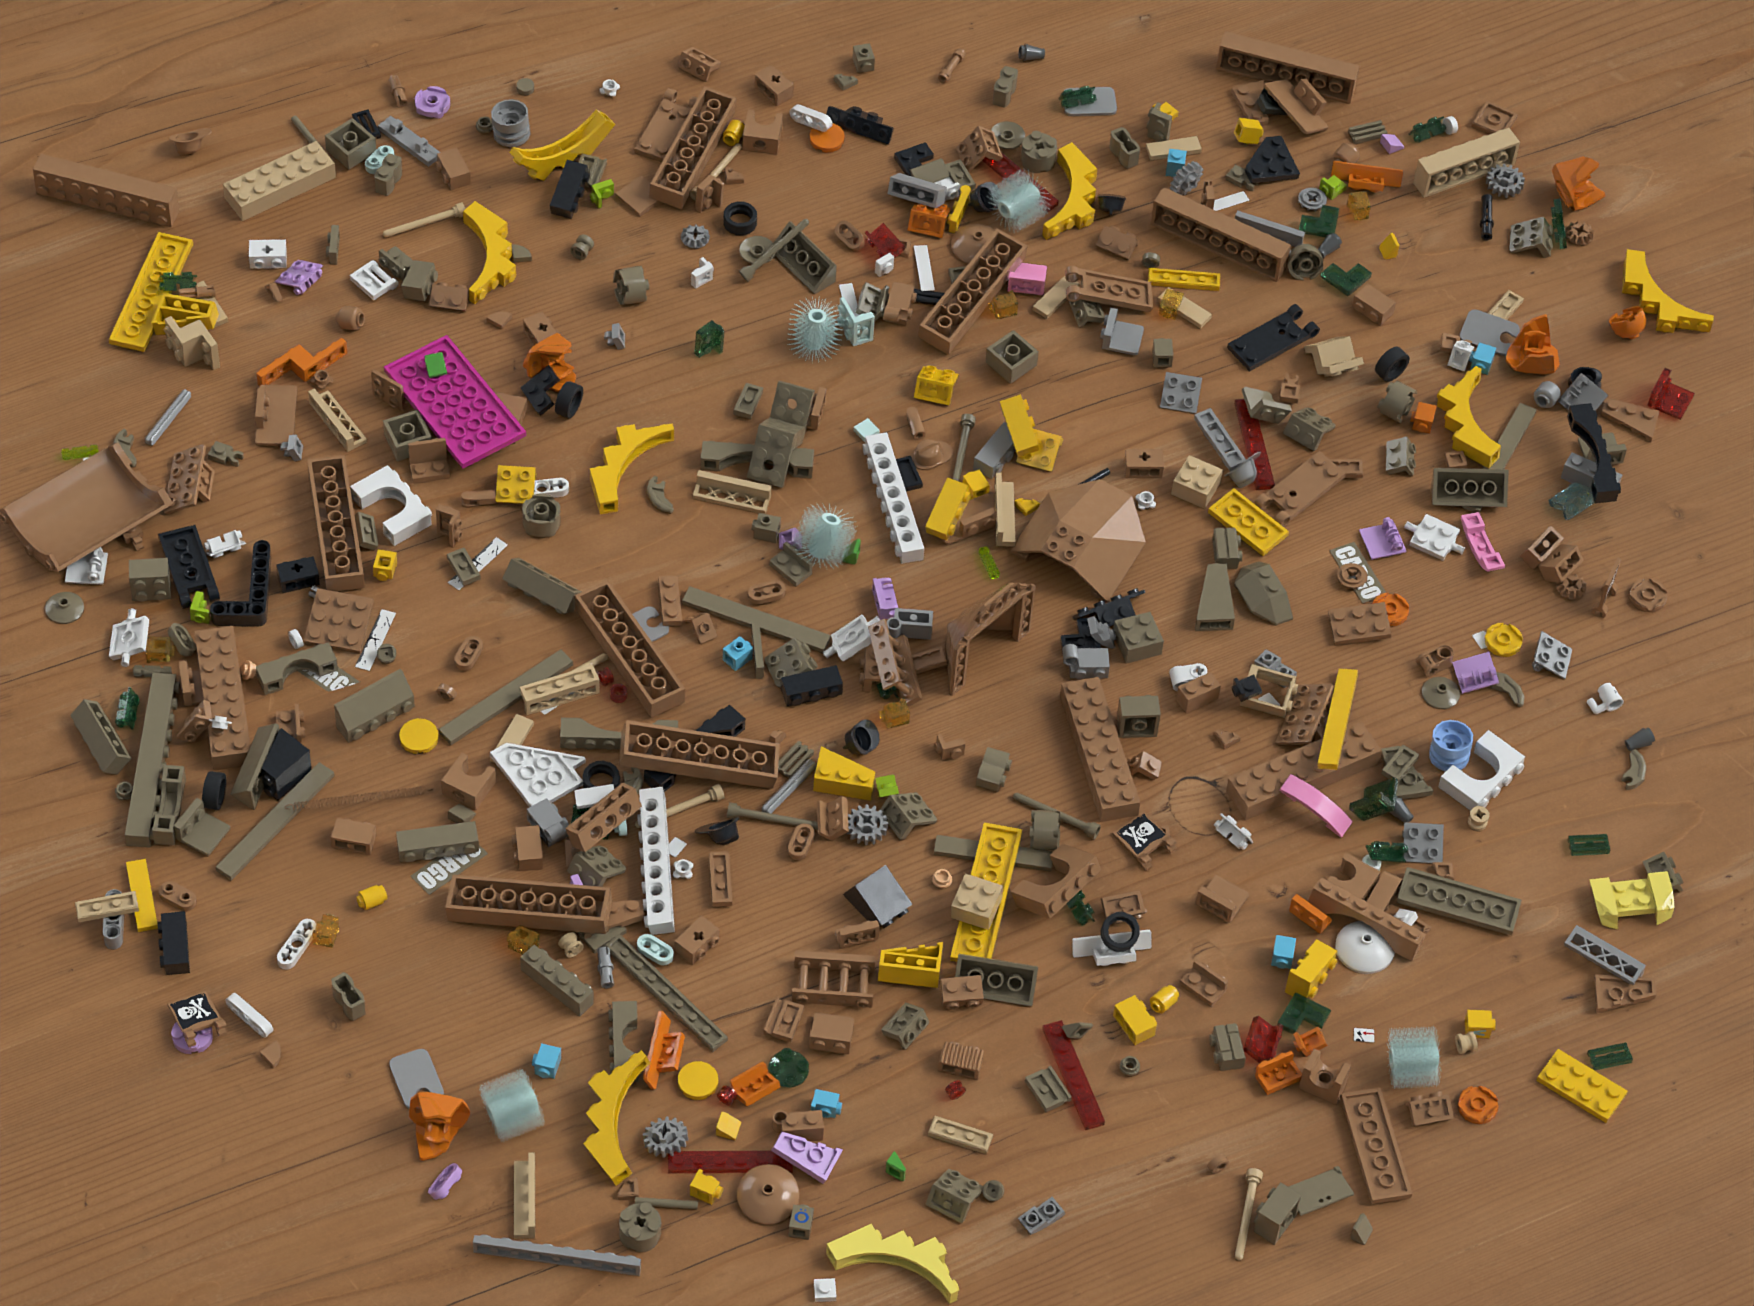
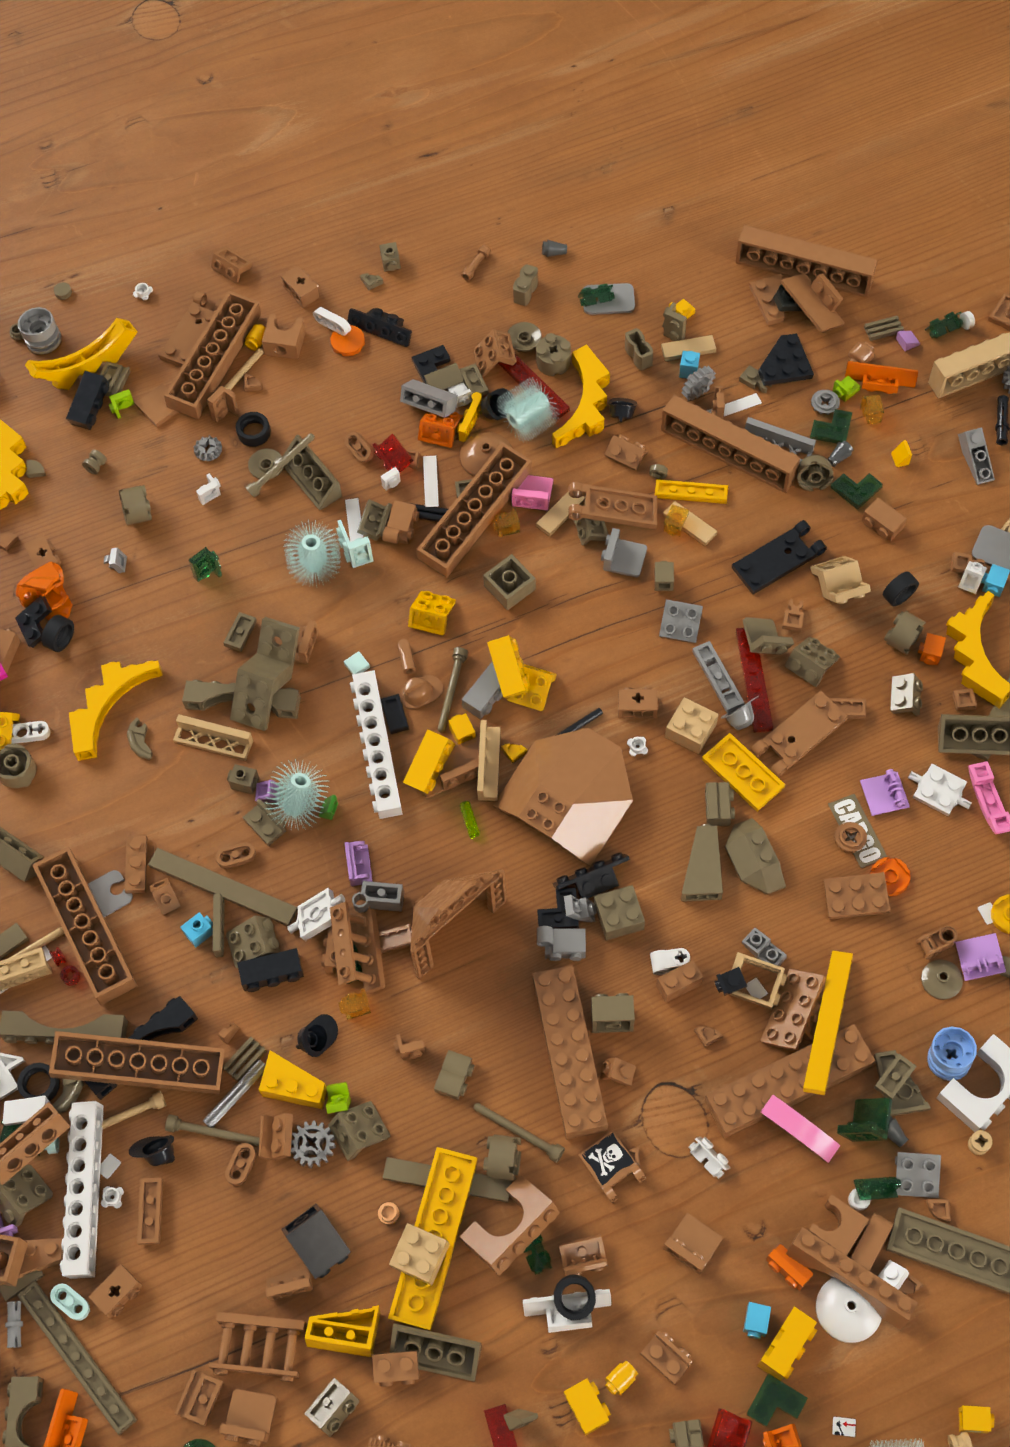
camera: 10 degrees right, 10 degrees up
(1248, 131) = (764, 329): yellow brick -> none
(1462, 247) = (976, 455): none -> light grey slope

